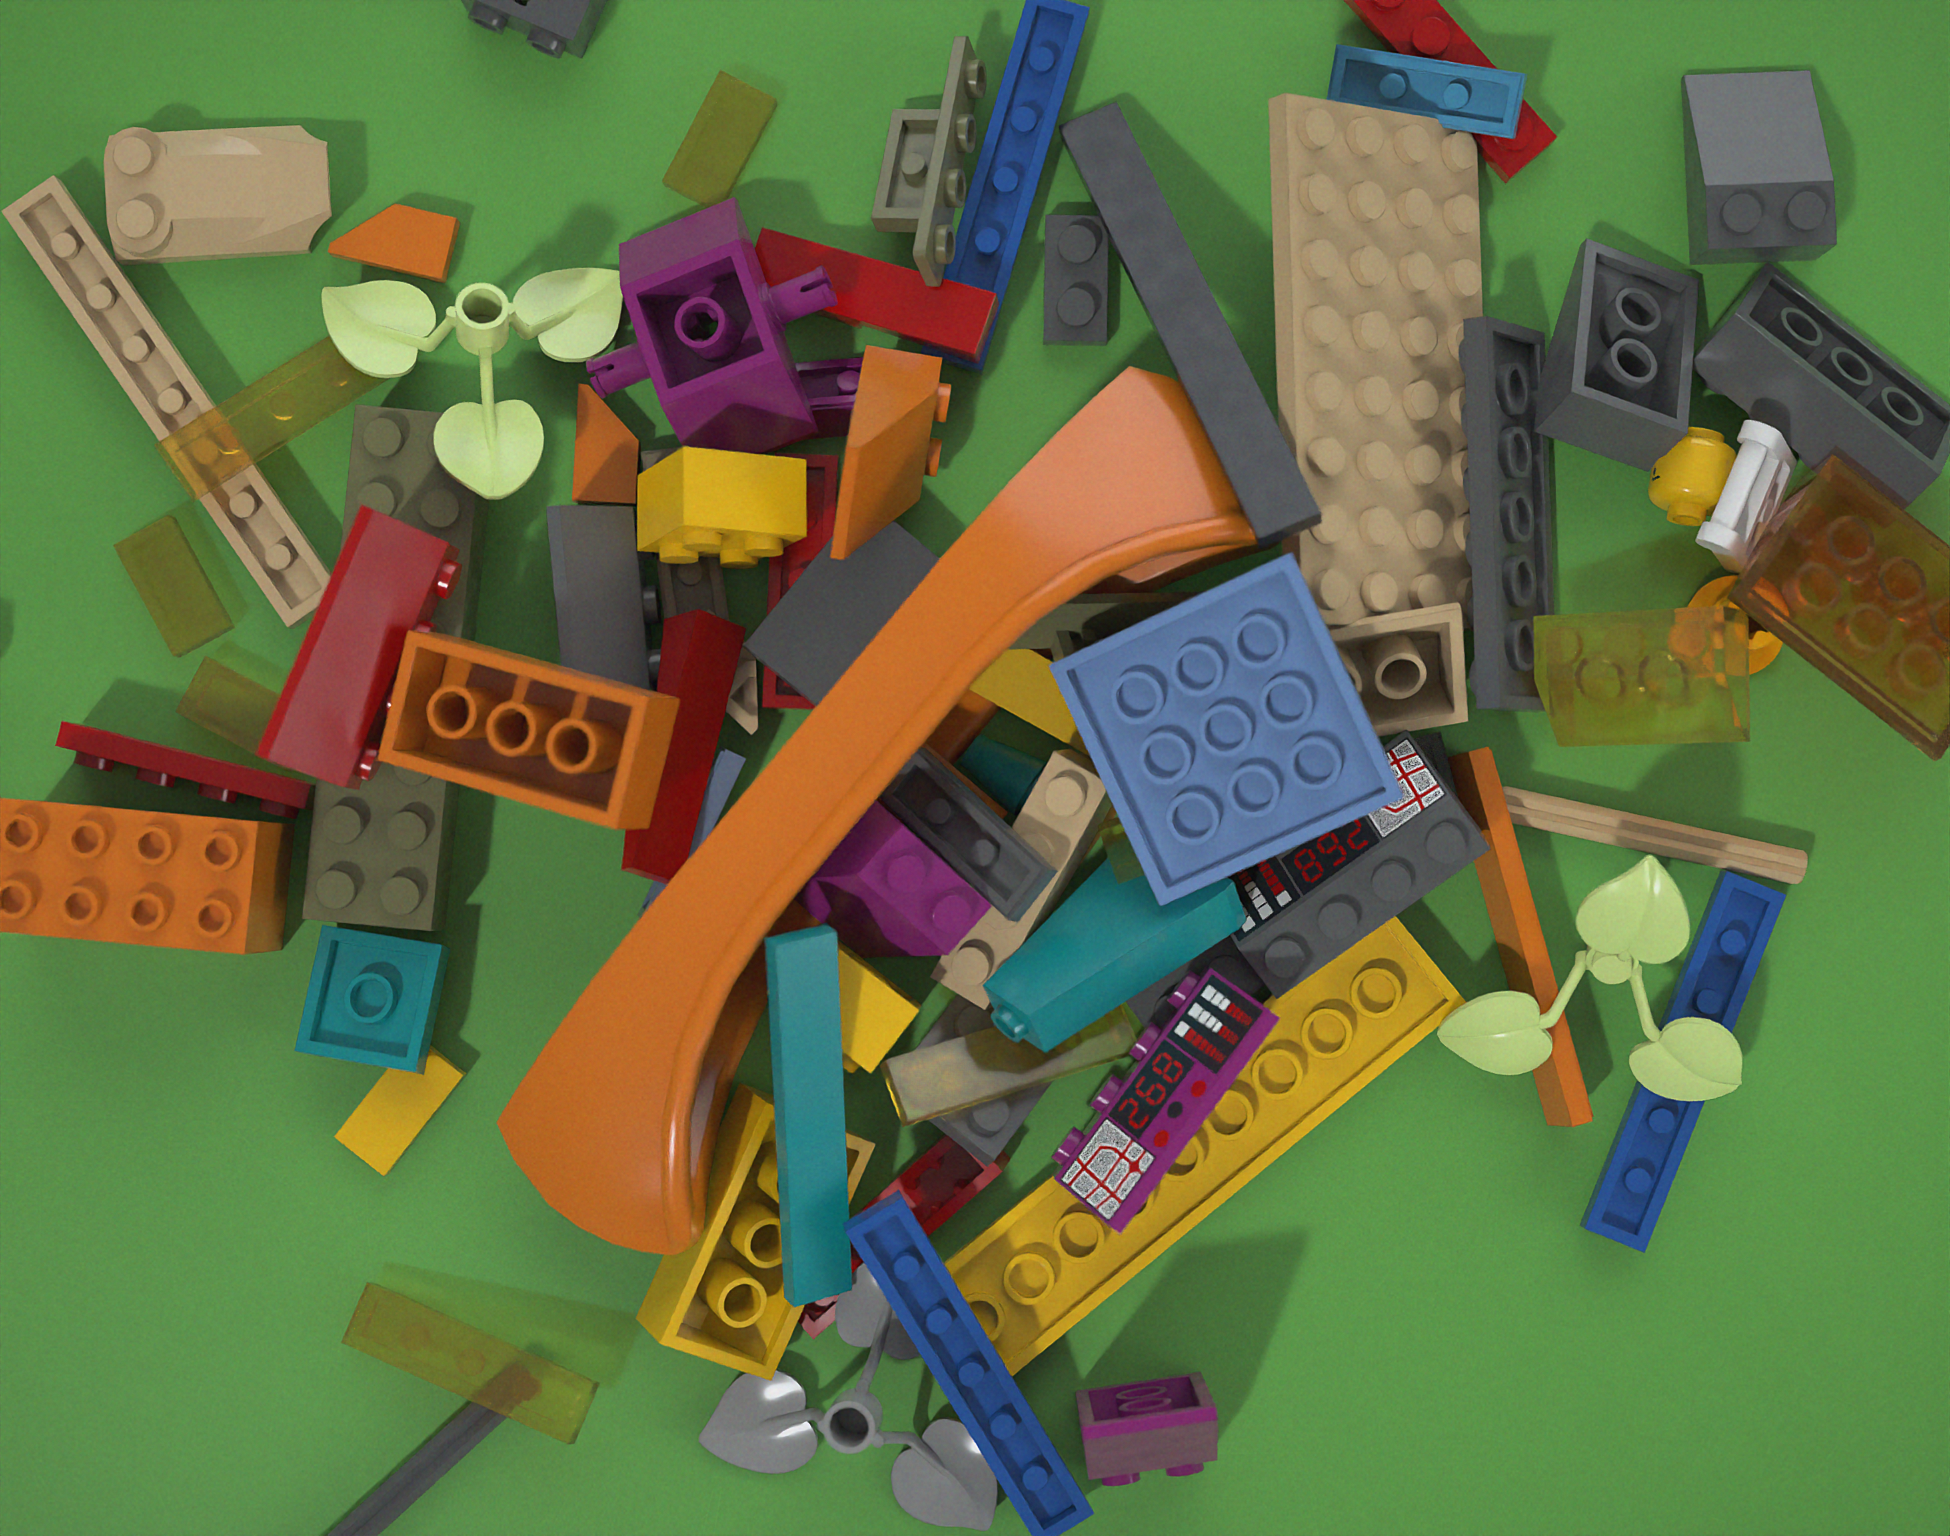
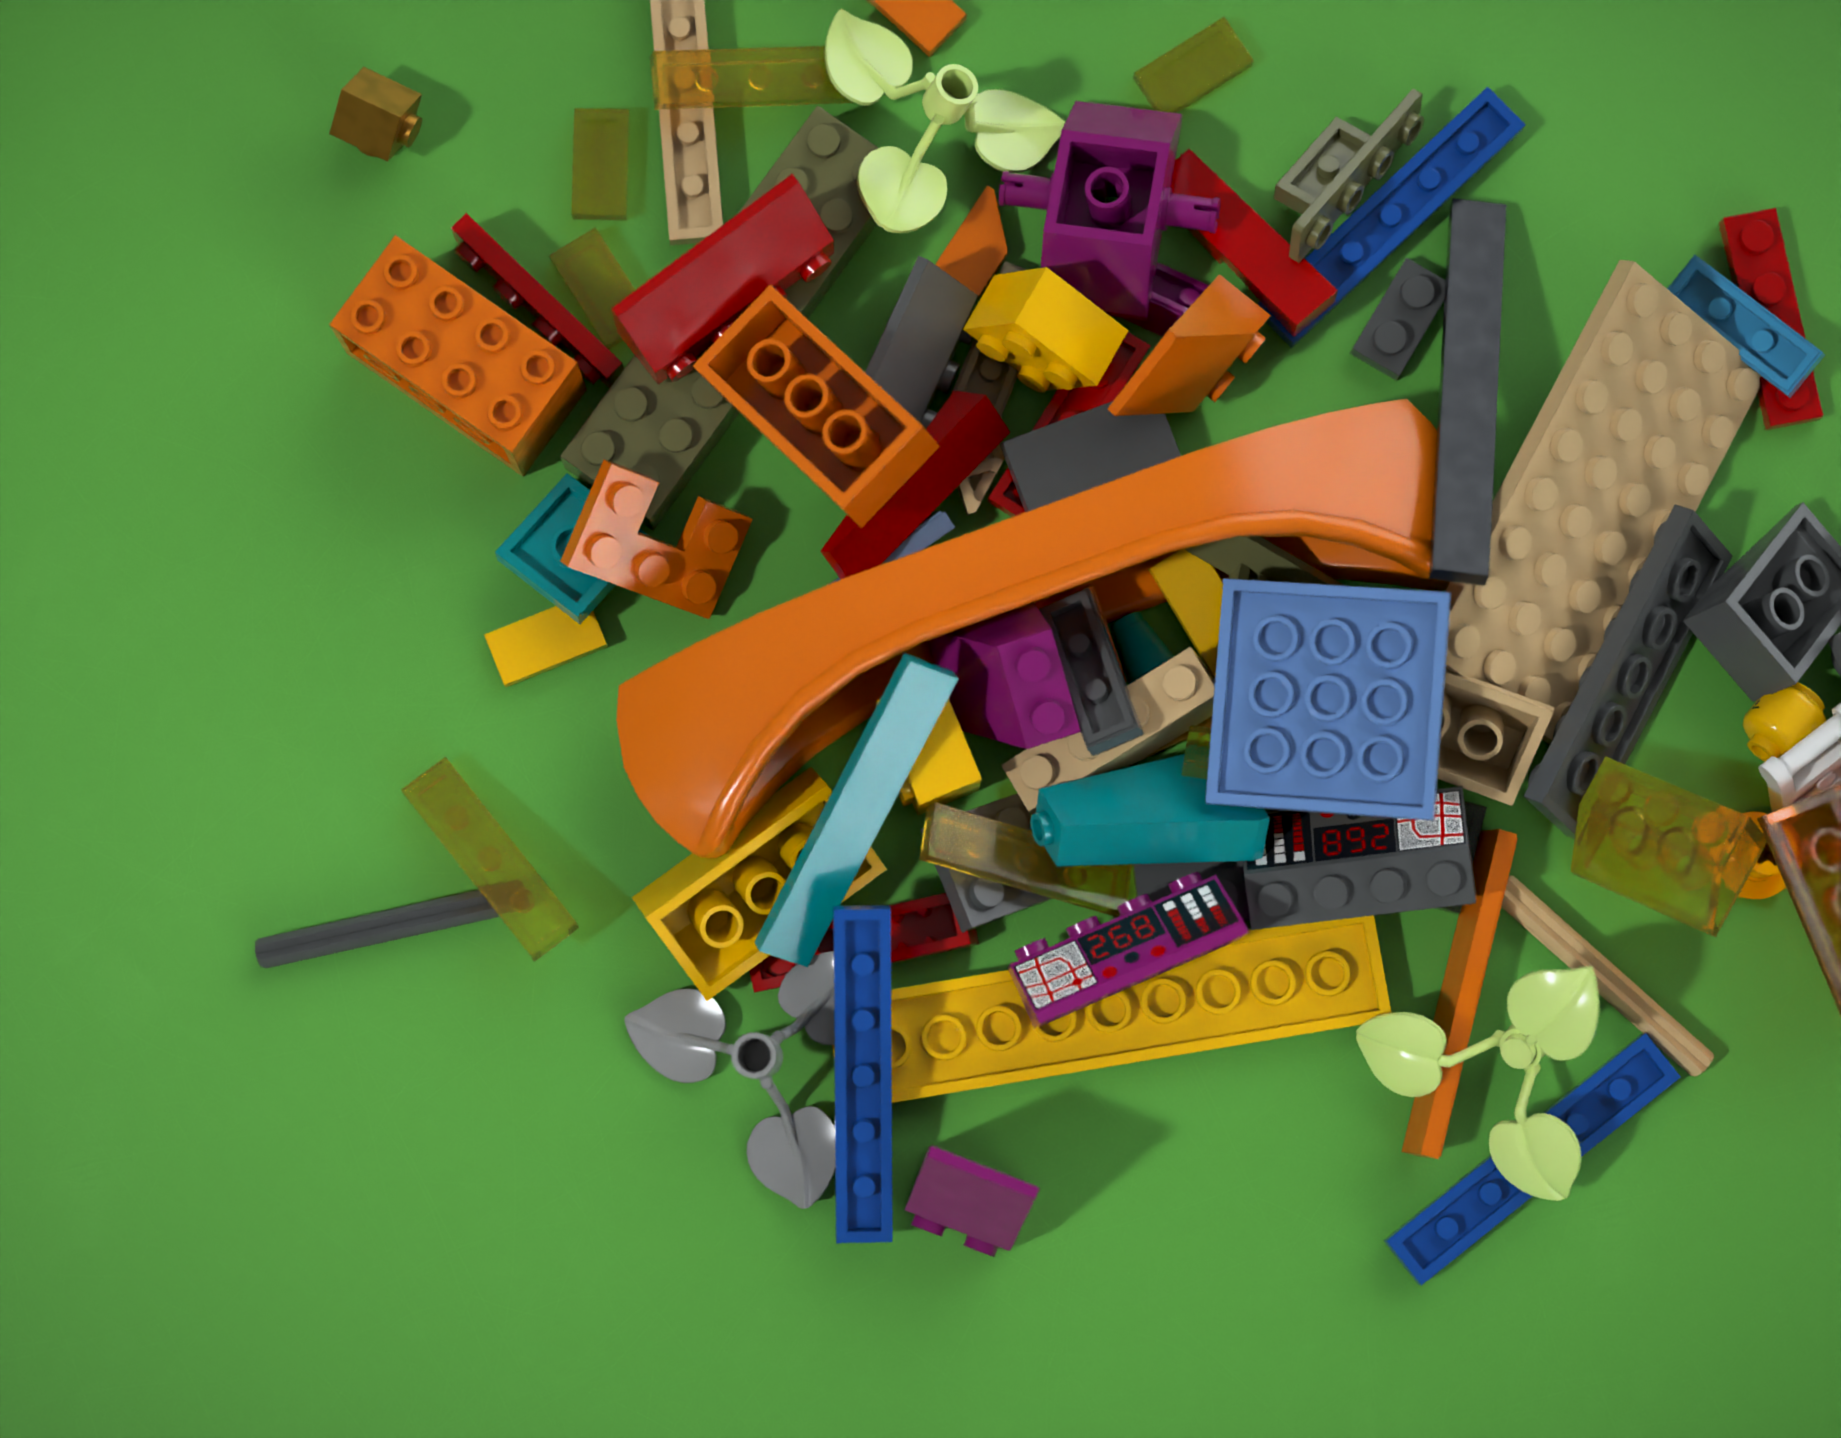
camera: 20 degrees right, 5 degrees down
(411, 985) = (613, 550): none -> orange plate

